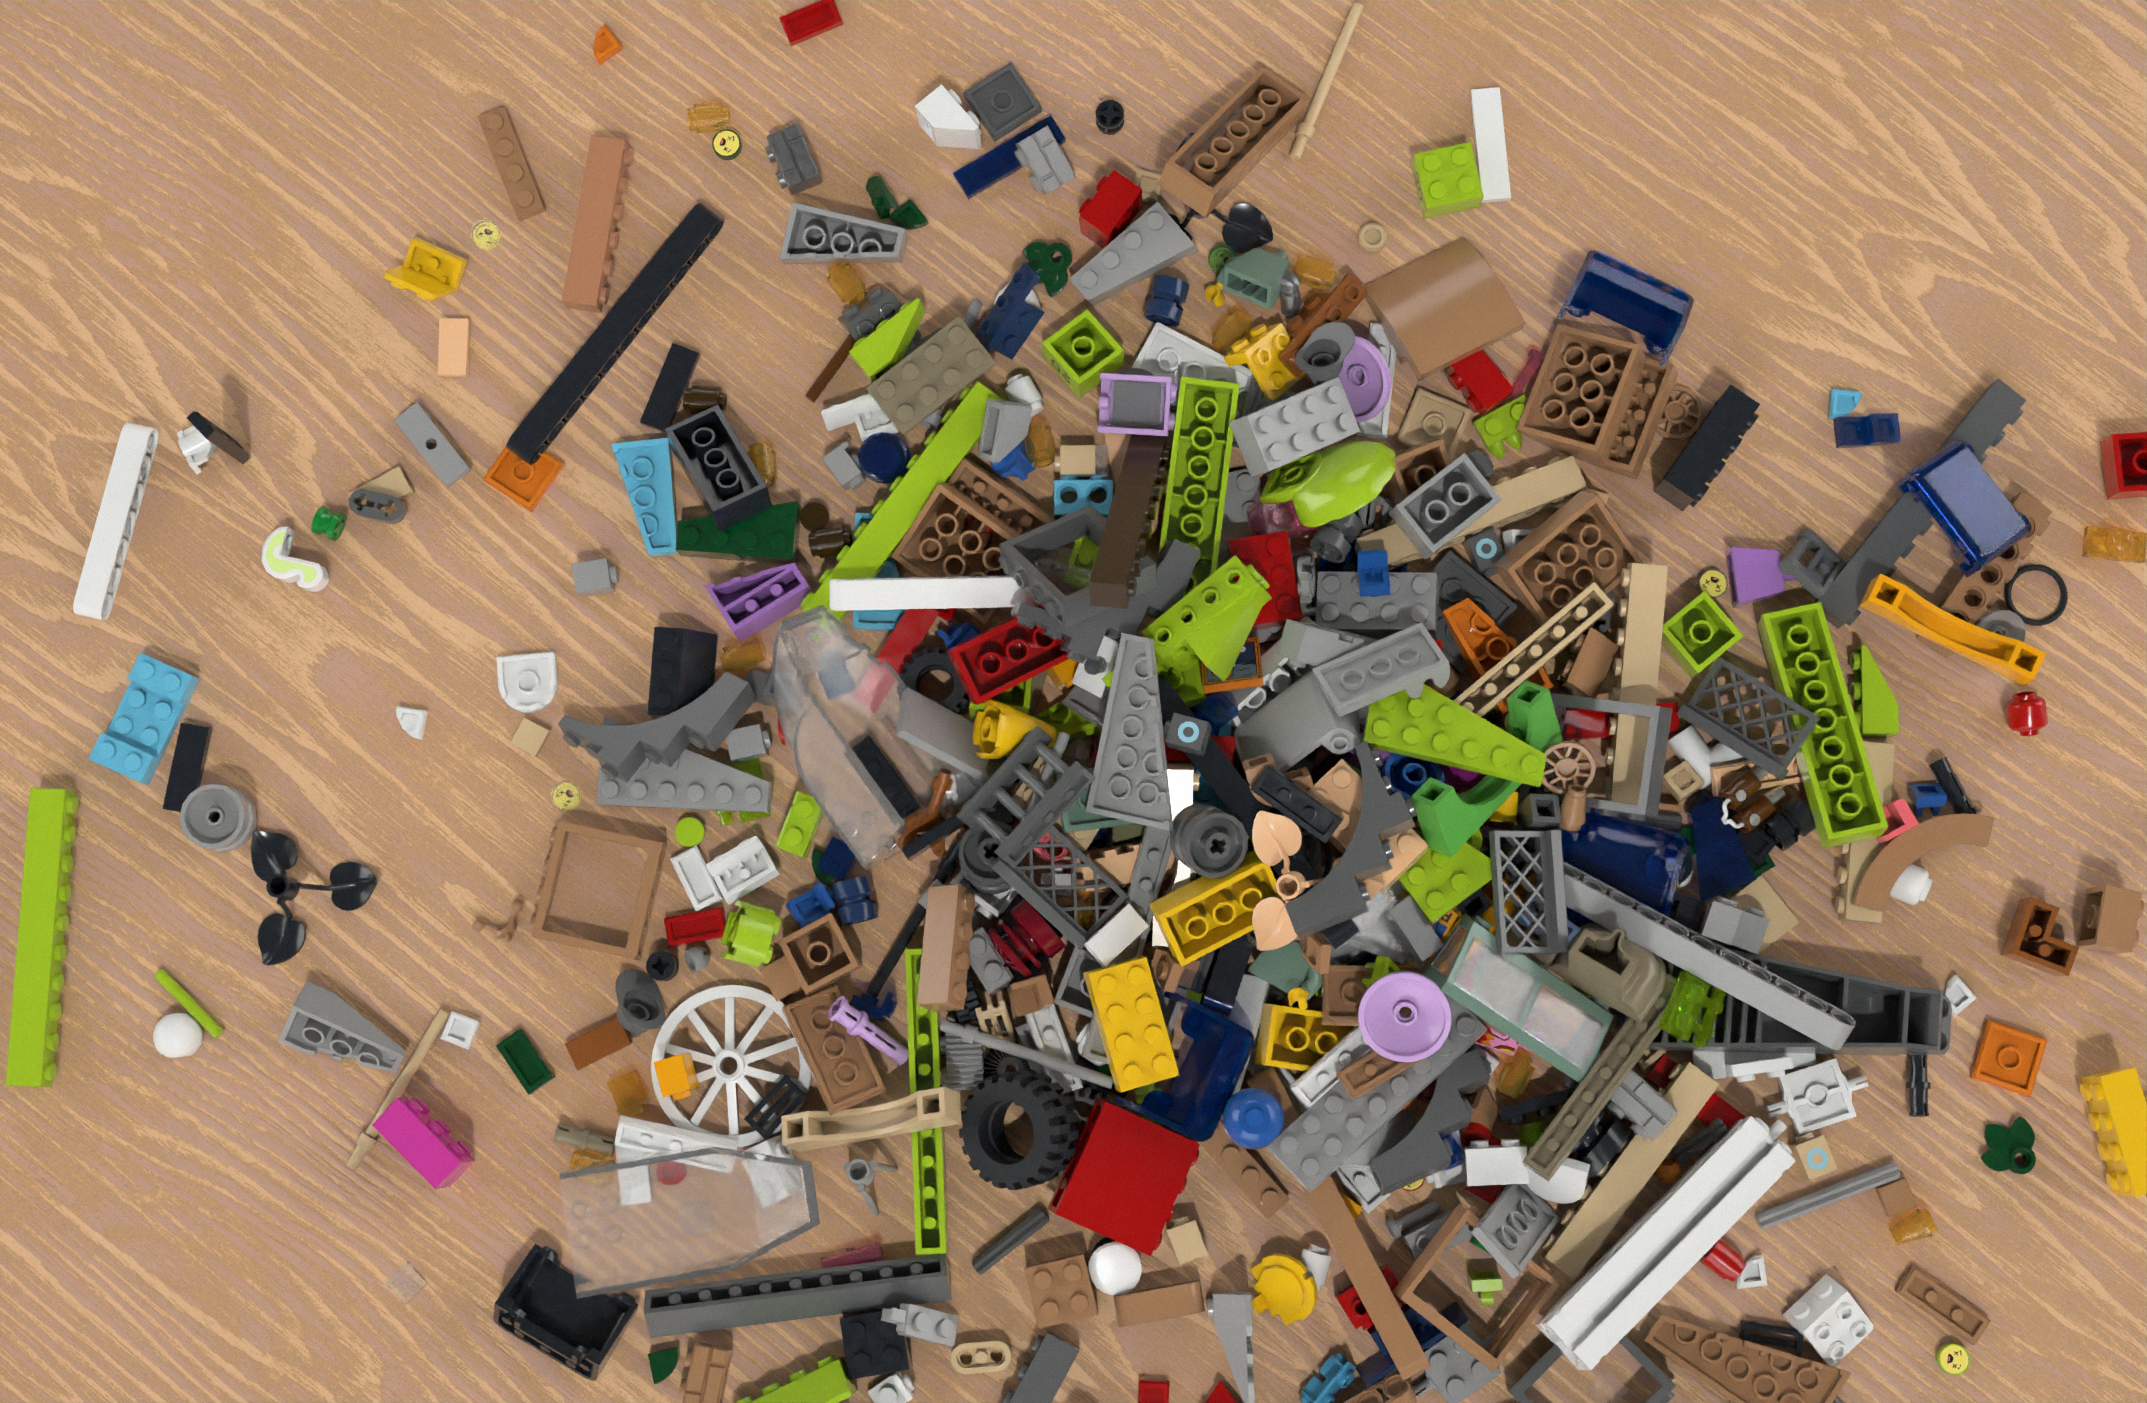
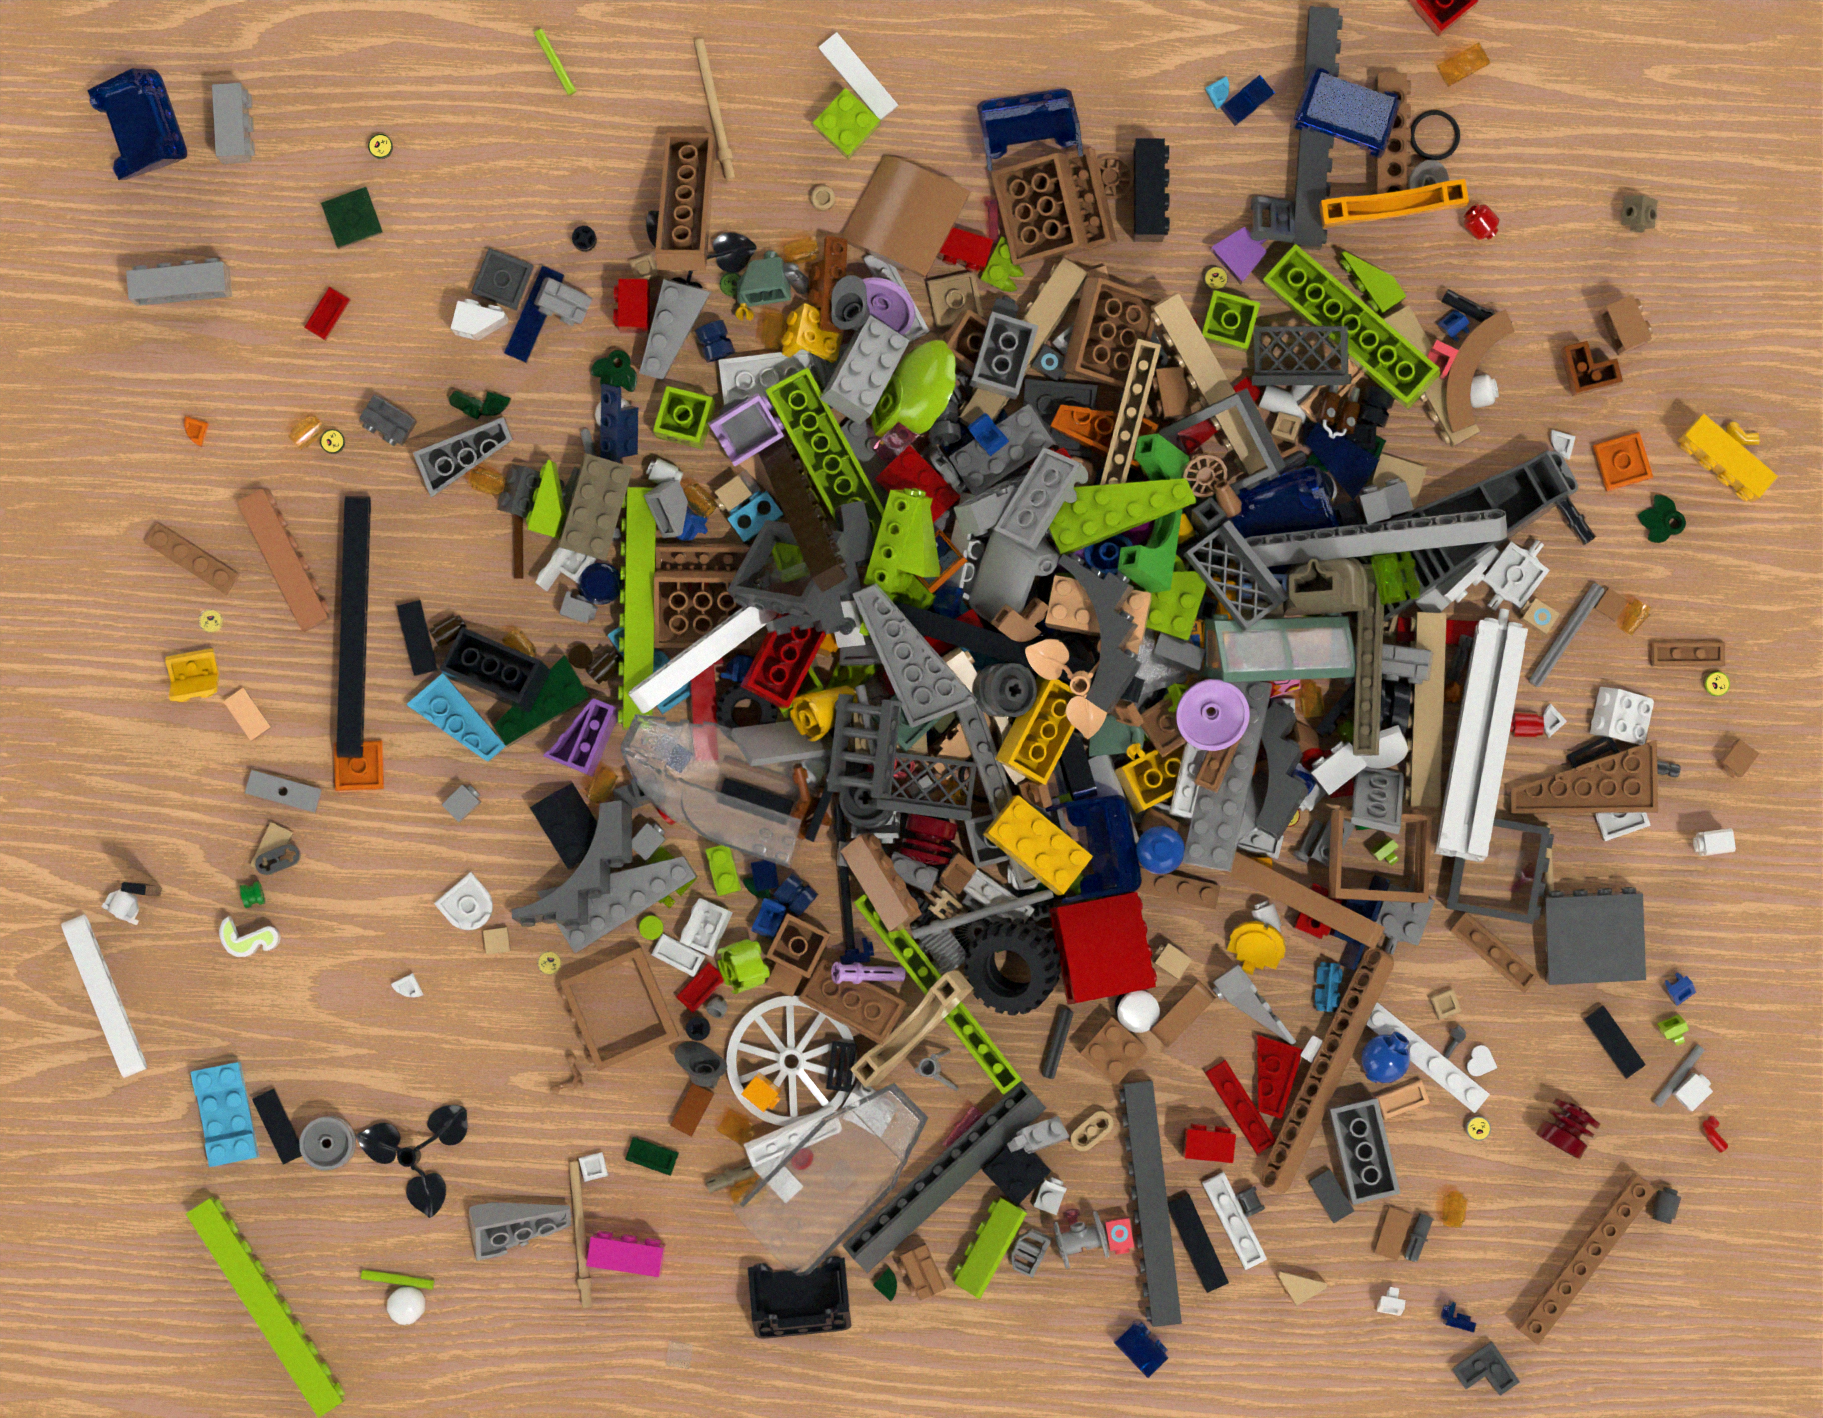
camera: 45 degrees left, 5 degrees up
(1116, 935) = (987, 794): white tile -> none
(1187, 734) = (942, 630): dark grey brick -> none
(1297, 803) = (1046, 626): black tile -> none

